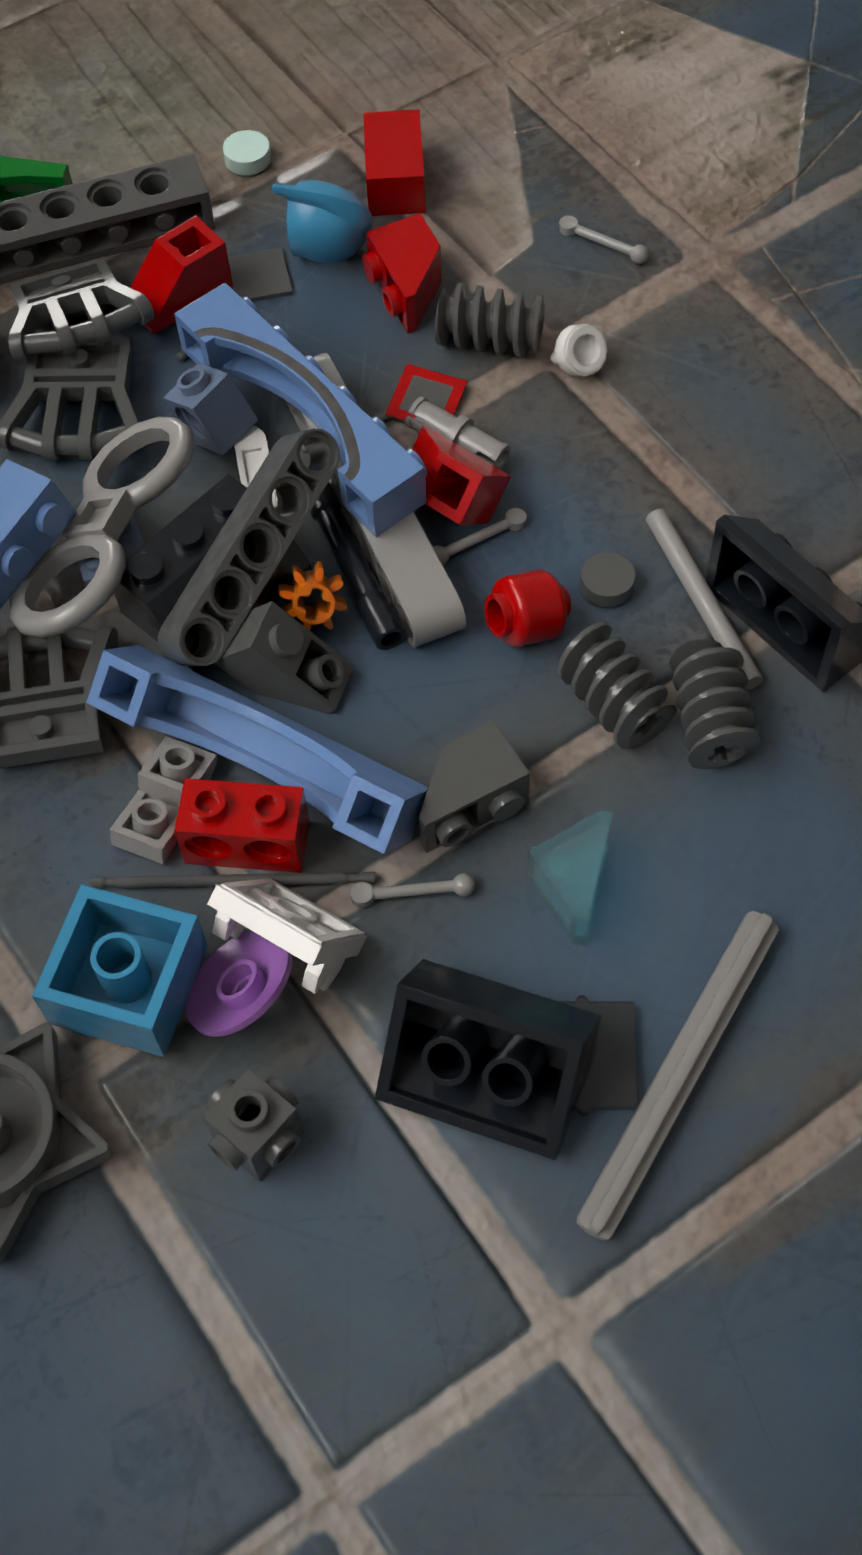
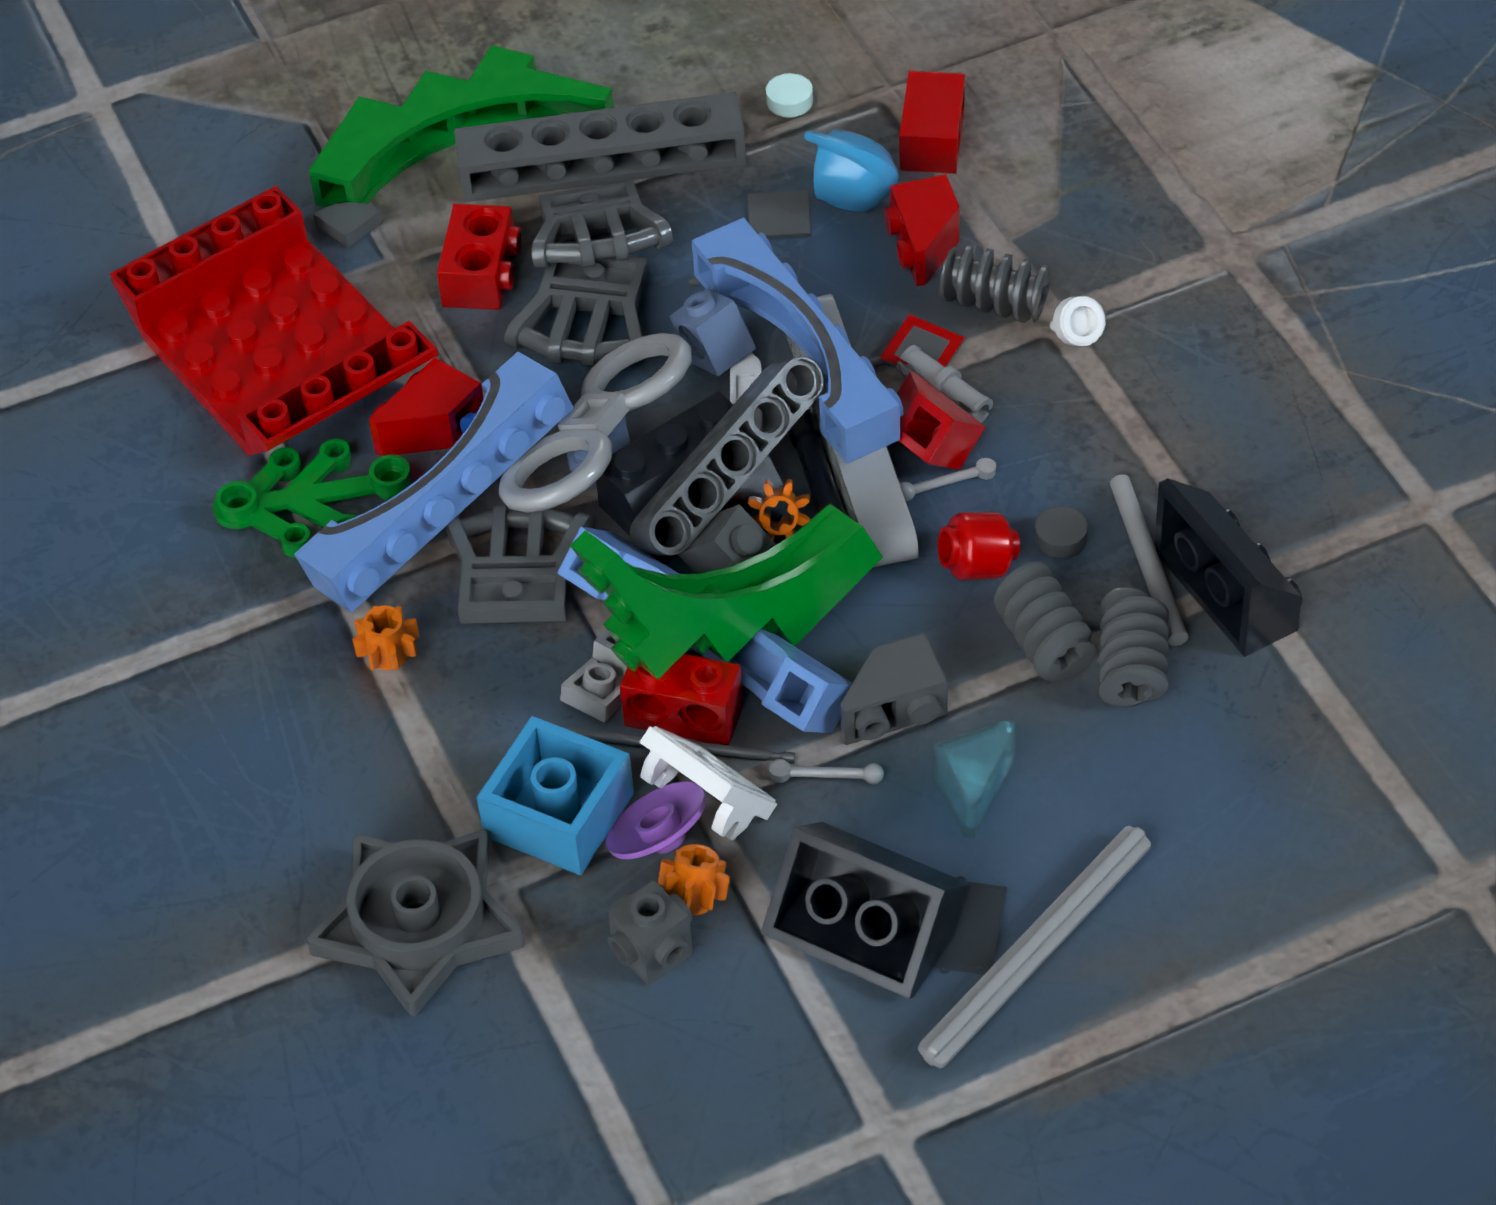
camera: 10 degrees right, 10 degrees down
(181, 270) = (706, 200): red slope -> none
(292, 1049) = (695, 877): none -> orange gear
(333, 692) = (723, 609): none -> green arch
(569, 226) = (1096, 203): light grey hinge -> none

